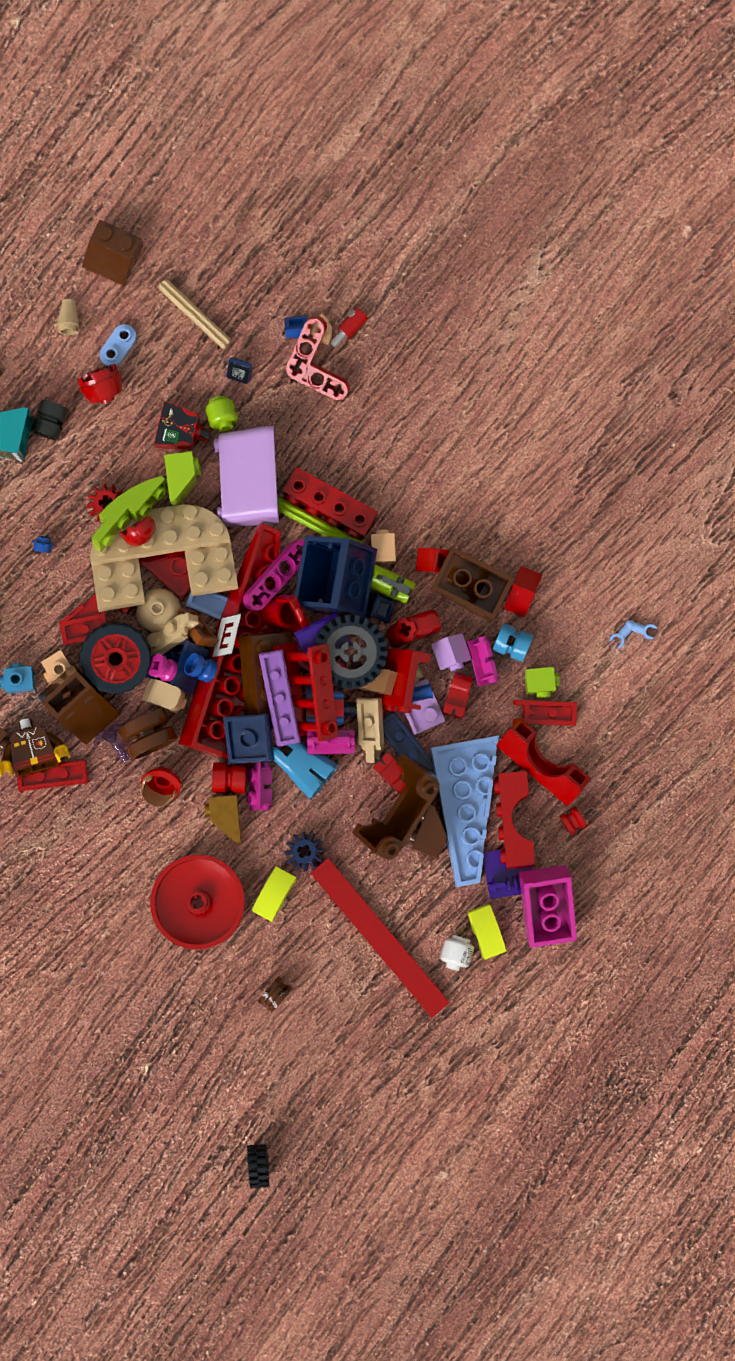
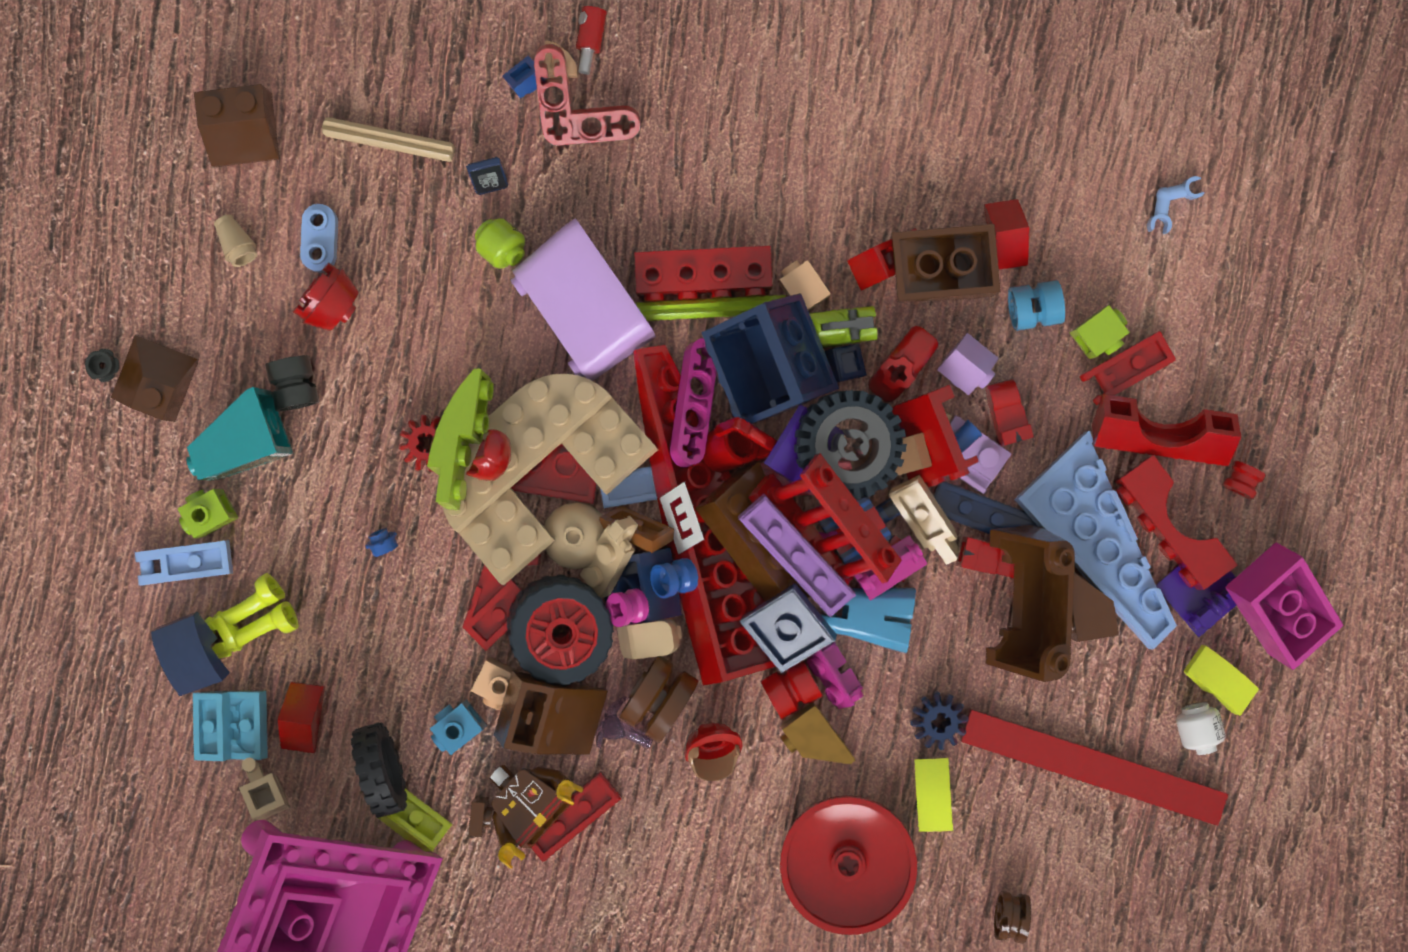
camera: 25 degrees left, 5 degrees up
(179, 428) = (459, 294): black torso -> none
(181, 475) = (498, 351): lime slope -> none
(482, 662) = (1005, 343): dark pink hinge -> none

